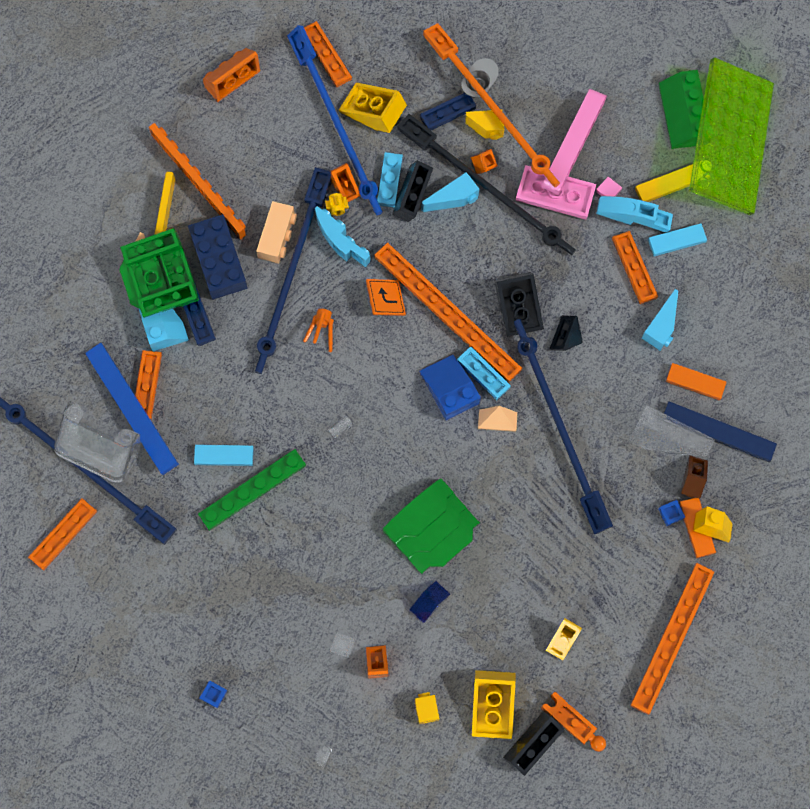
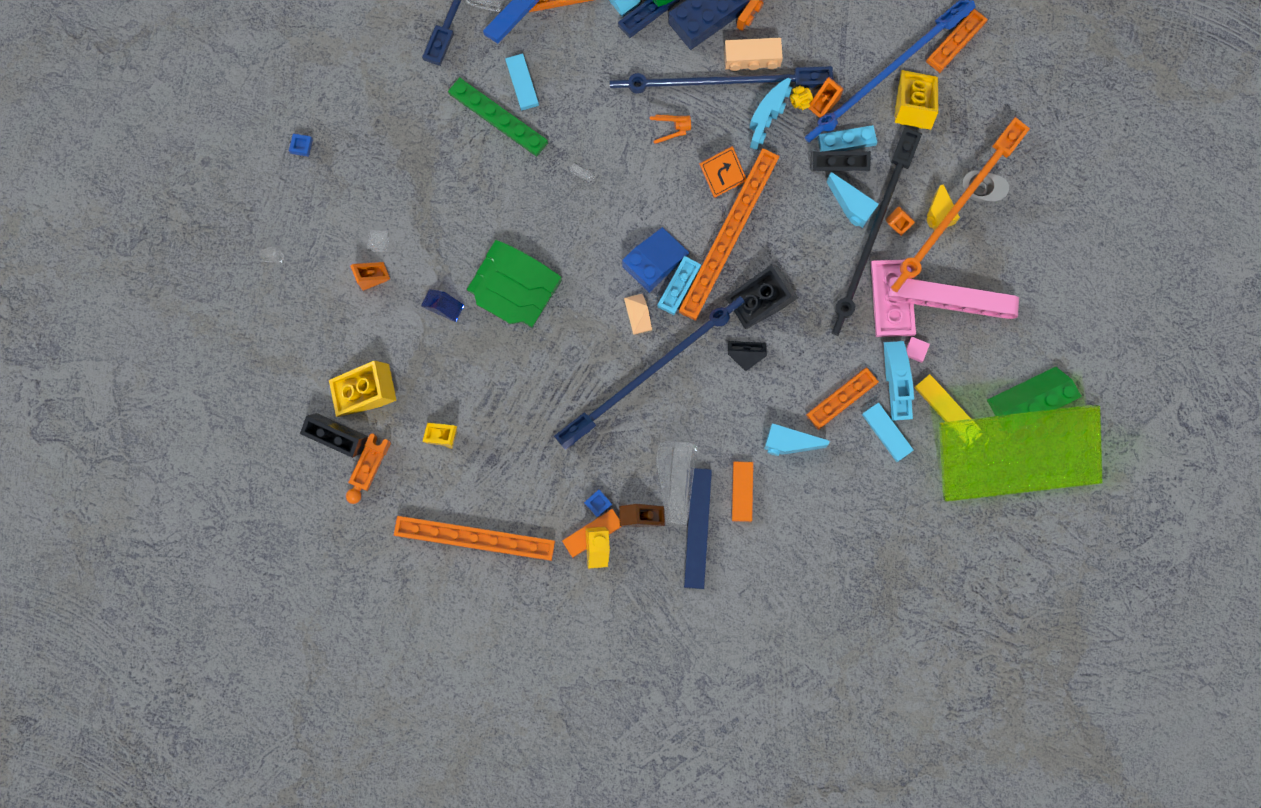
camera: 75 degrees right, 5 degrees up
(426, 708) = (340, 331): yellow brick -> none
(448, 111) = (939, 170): dark blue plate -> none

